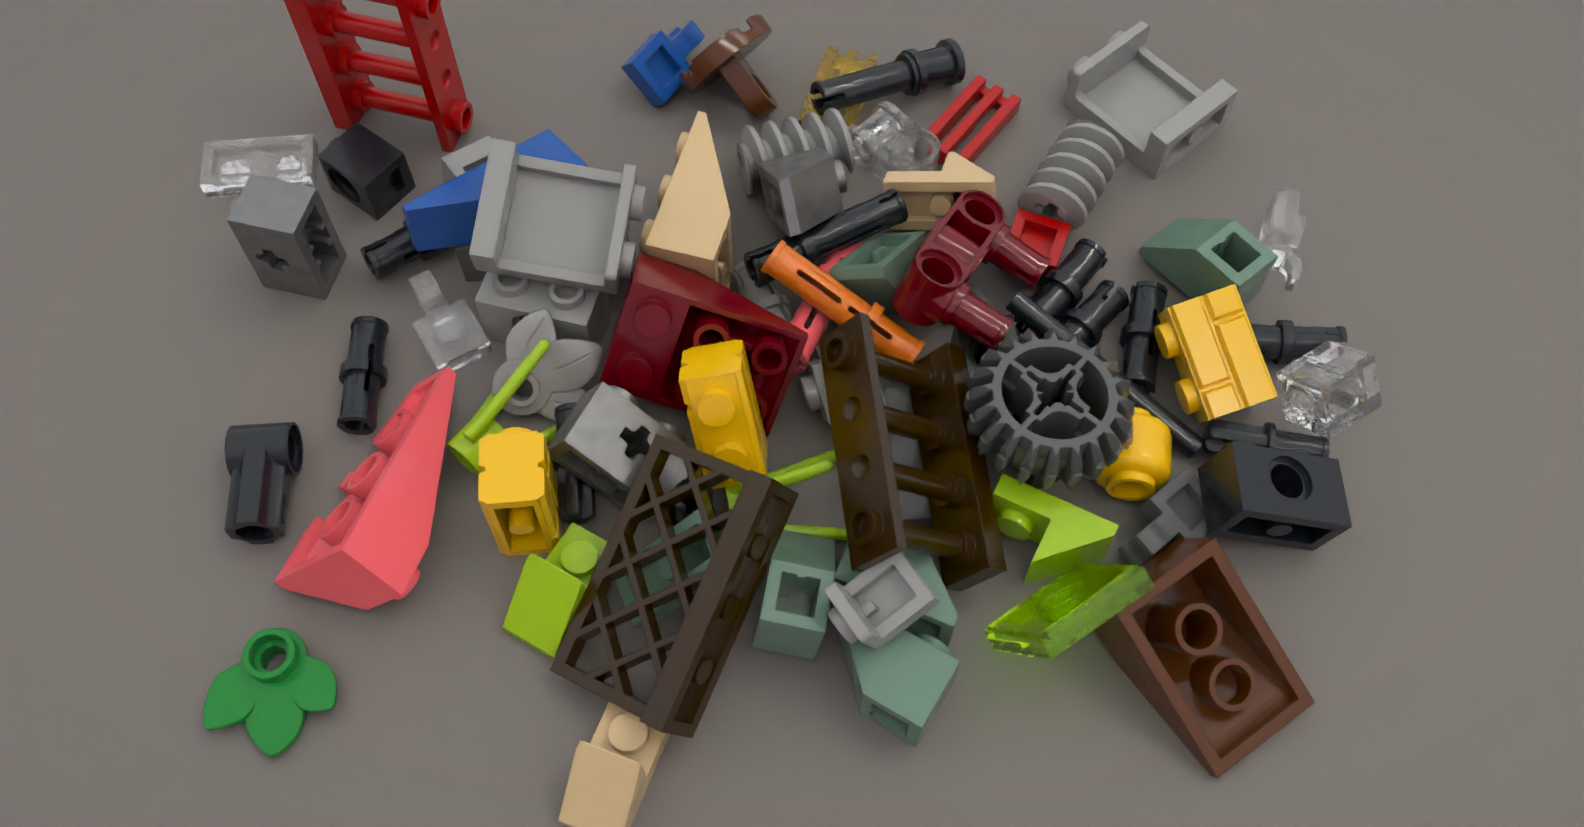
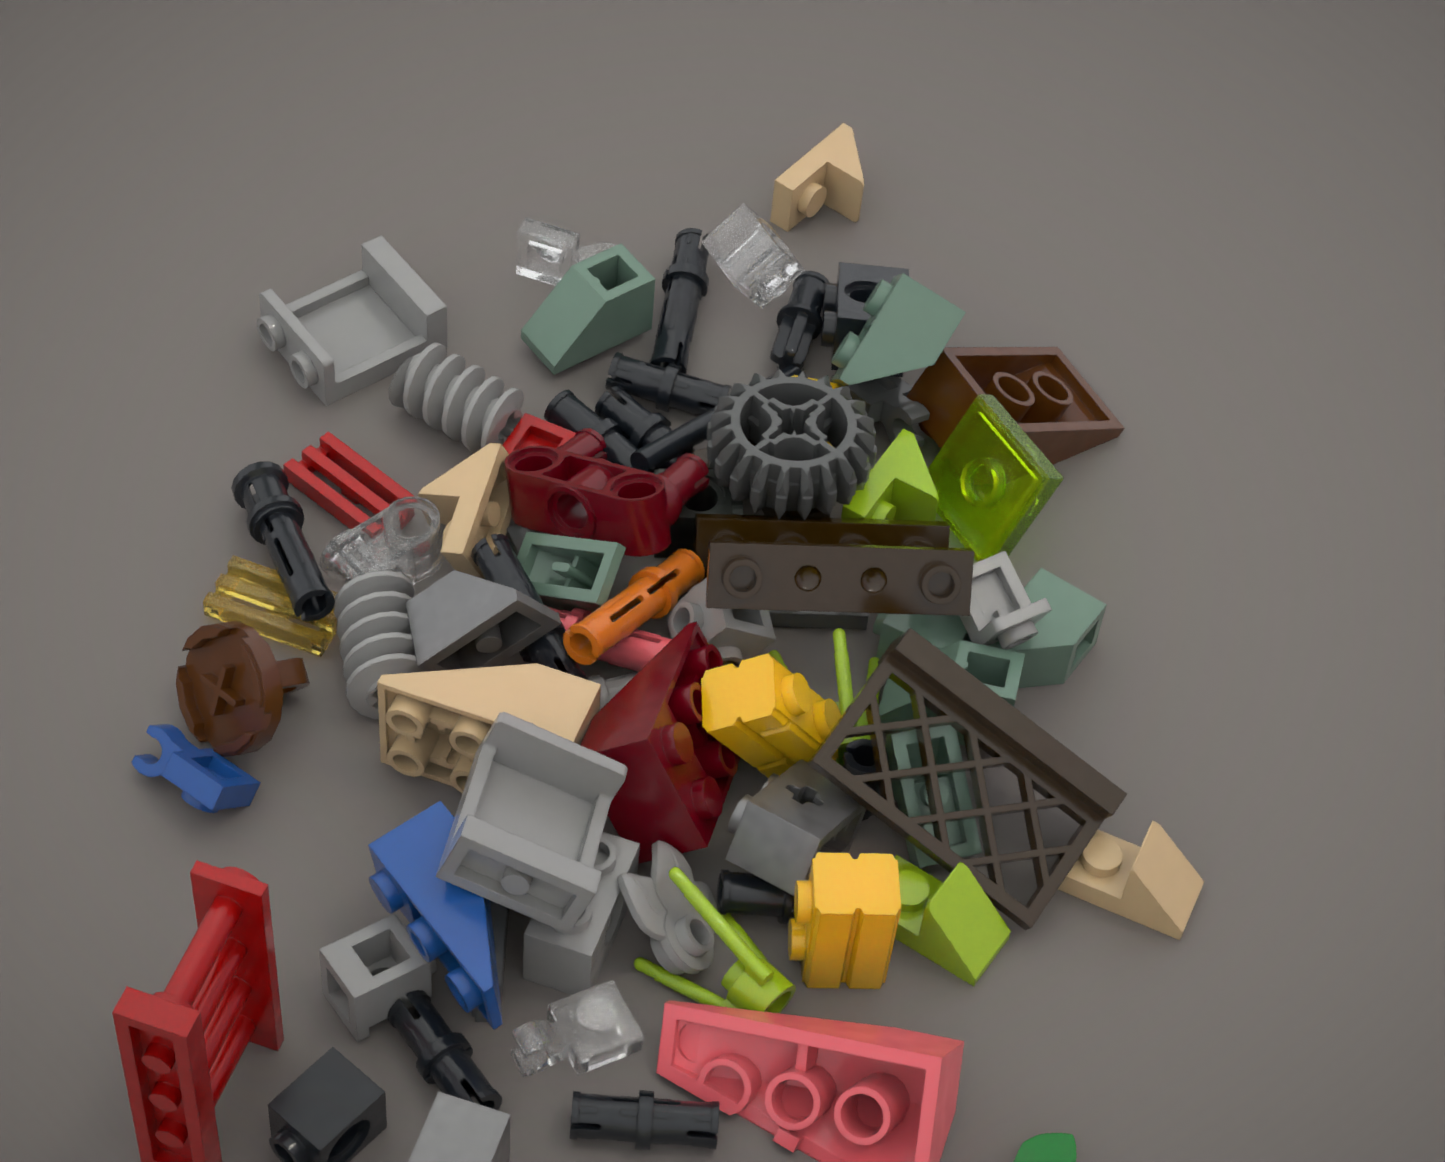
camera: 90 degrees left, 10 degrees down
(1214, 355) = (715, 323): yellow brick -> none
(1215, 492) = (902, 334): none -> sand green slope
(1484, 454) = (825, 176): none -> tan slope

